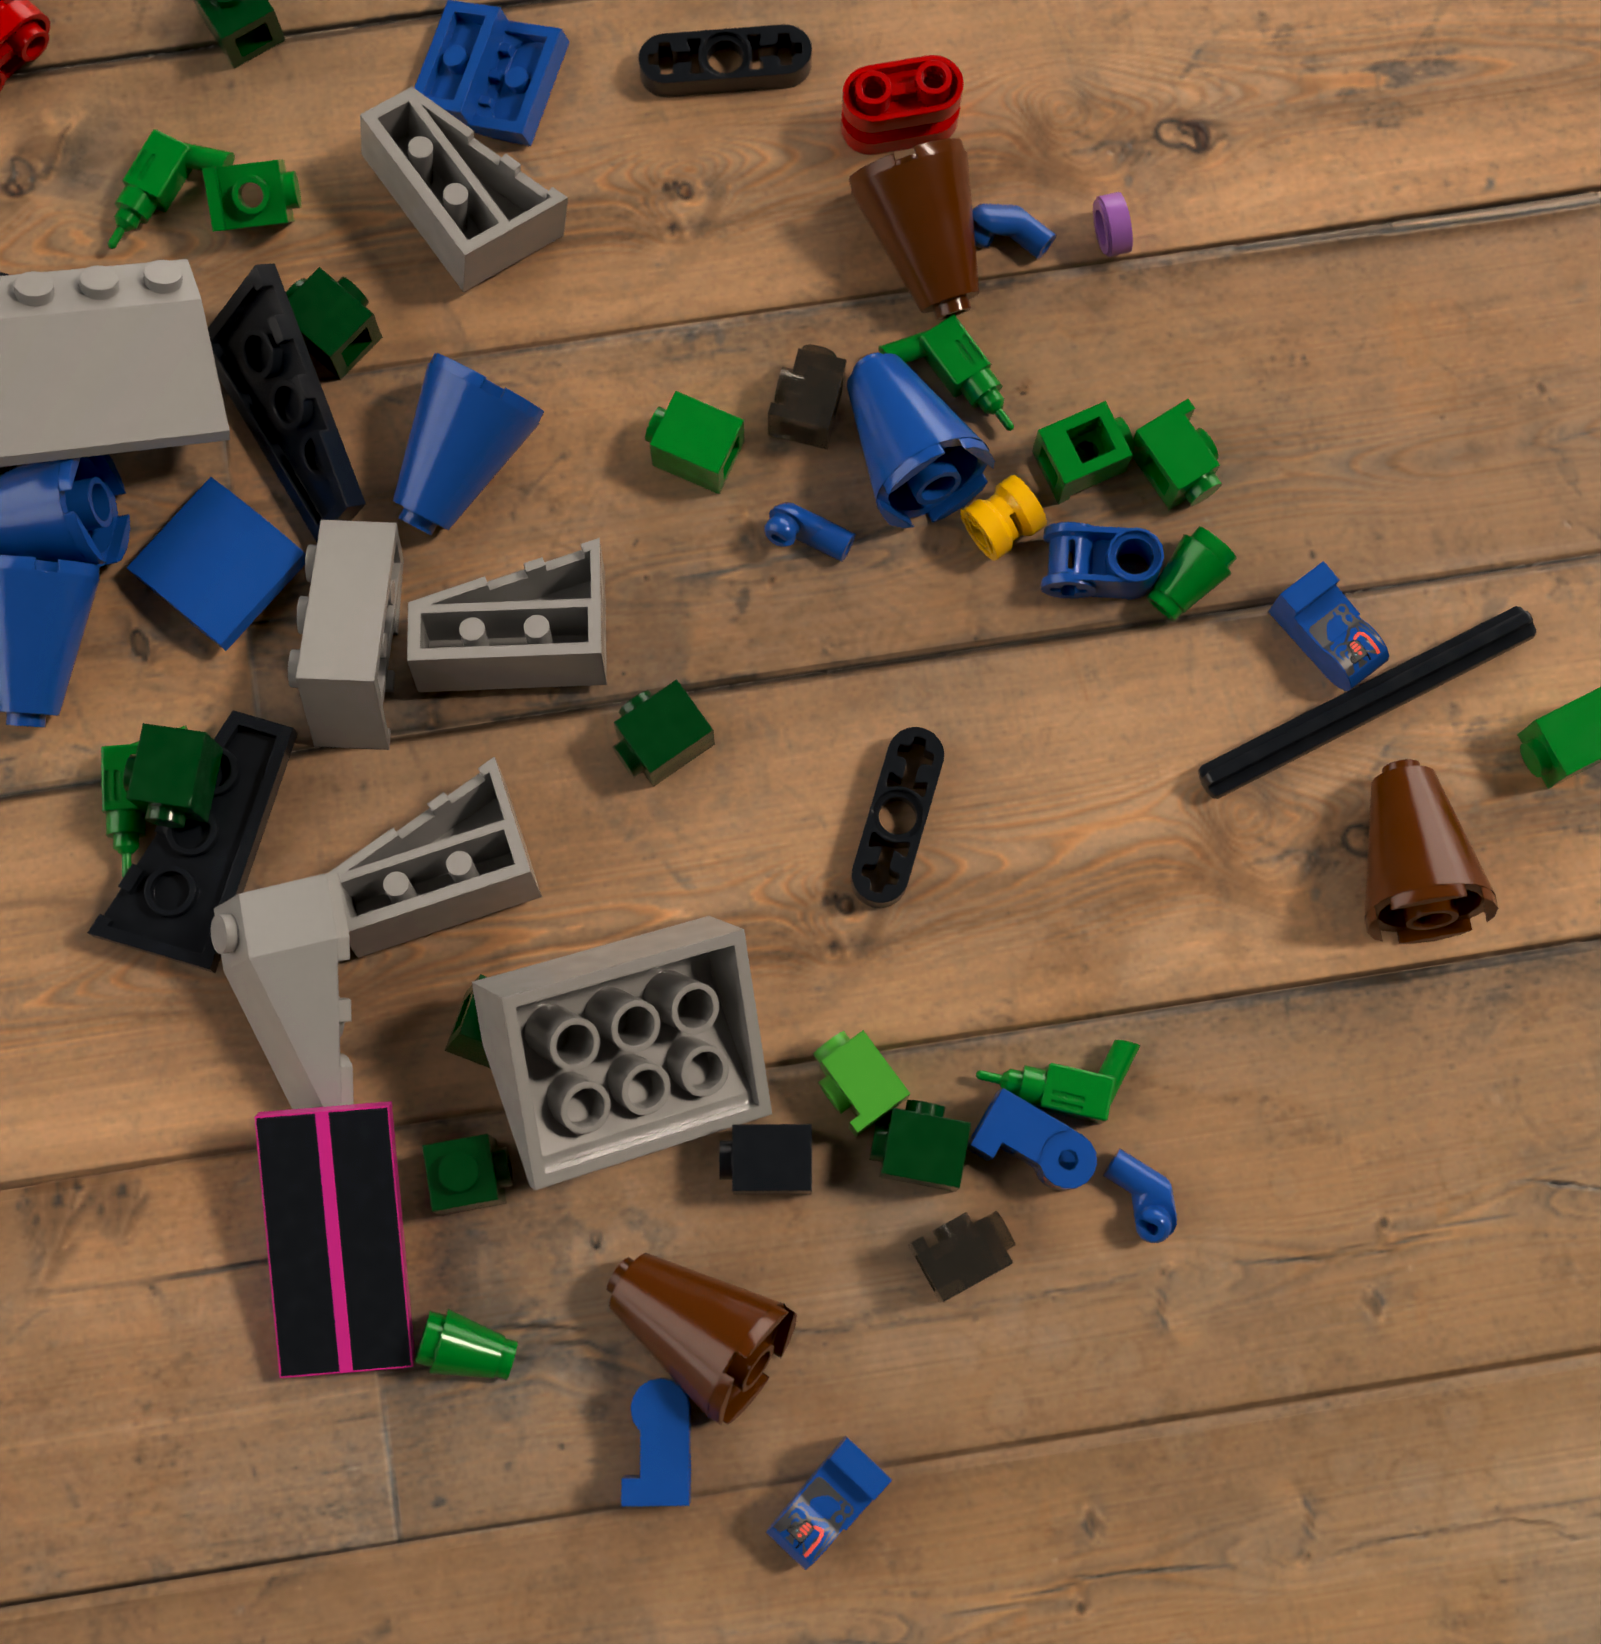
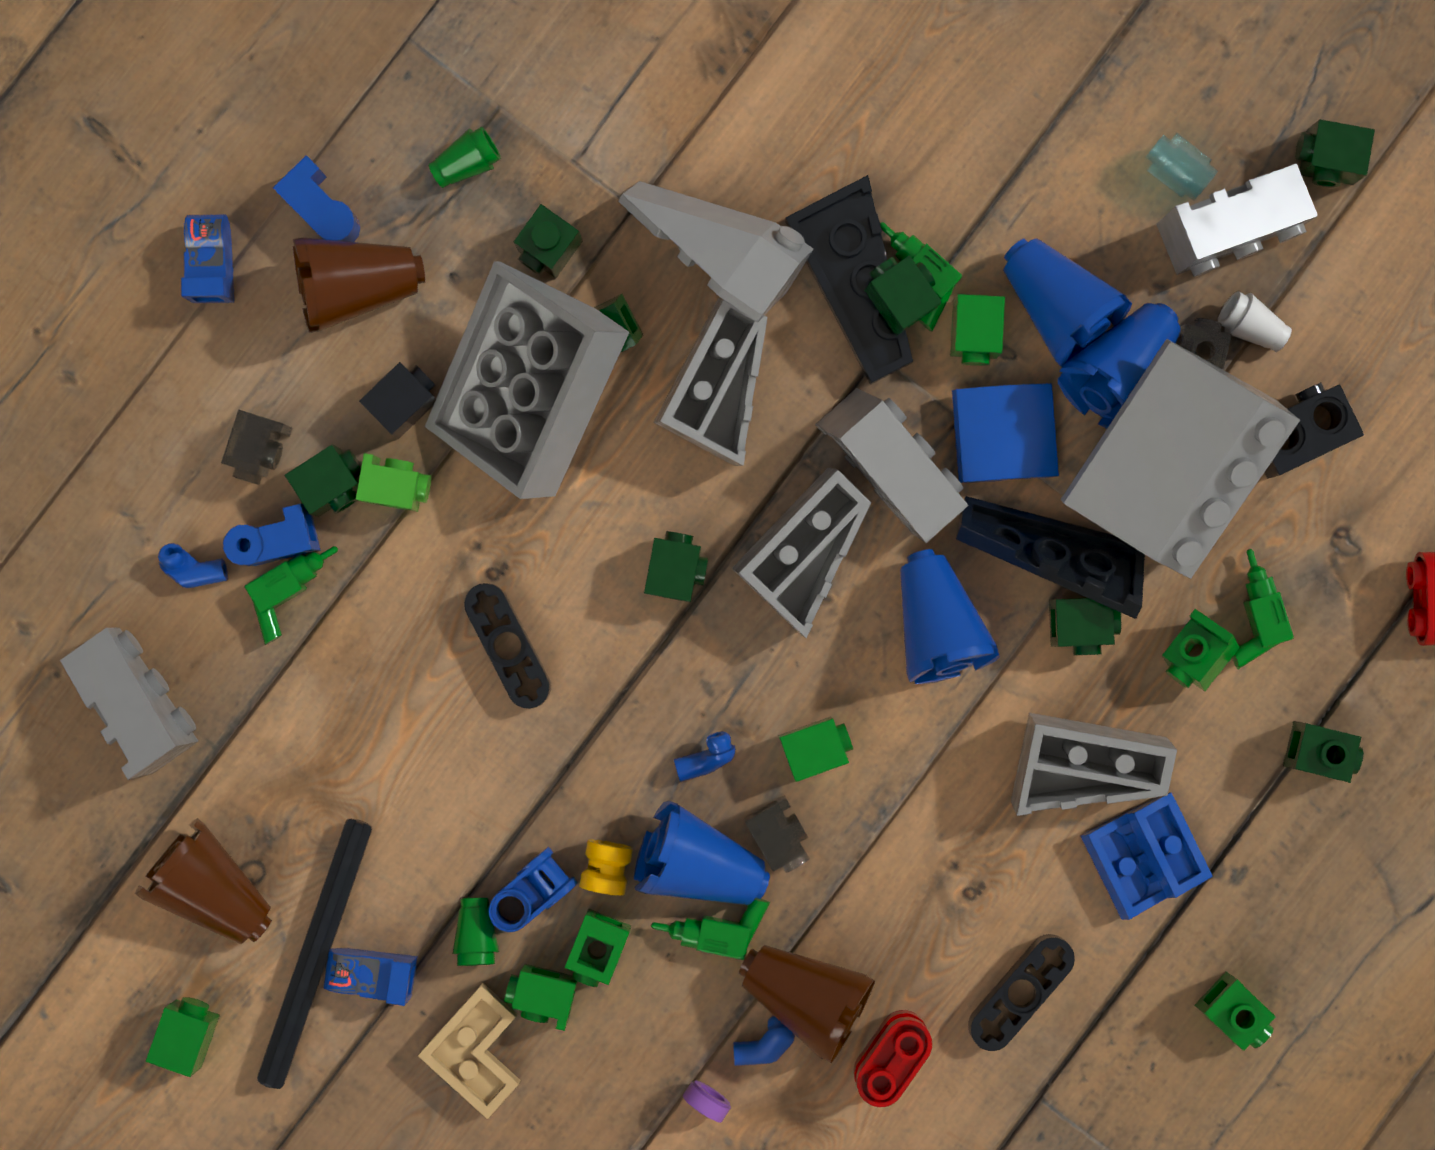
camera: 140 degrees right, 10 degrees up
(140, 682) = (977, 328): none -> green brick
(335, 1239) = (581, 146): black tile -> none
(1307, 478) = (461, 1052): none -> tan plate
(1331, 1111) = (130, 701): none -> light grey wedge

